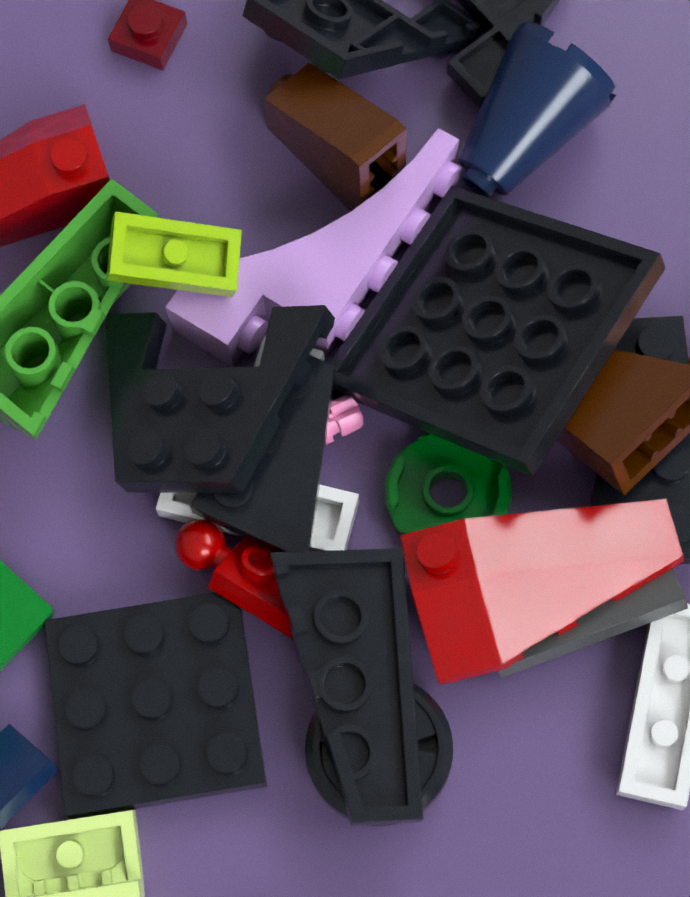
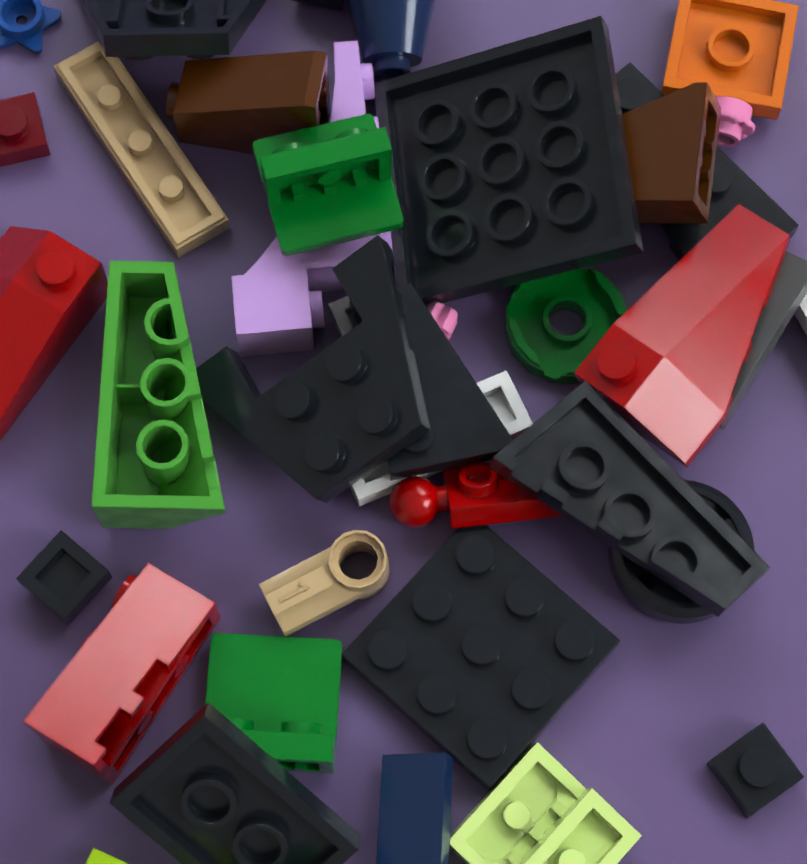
camera: 45 degrees left, 0 degrees up
(76, 554) = (320, 586): none -> tan piece
(174, 254) = (218, 283): lime plate -> none
(230, 118) = (142, 149): none -> tan tile
(328, 236) = (329, 184): none -> green bracket

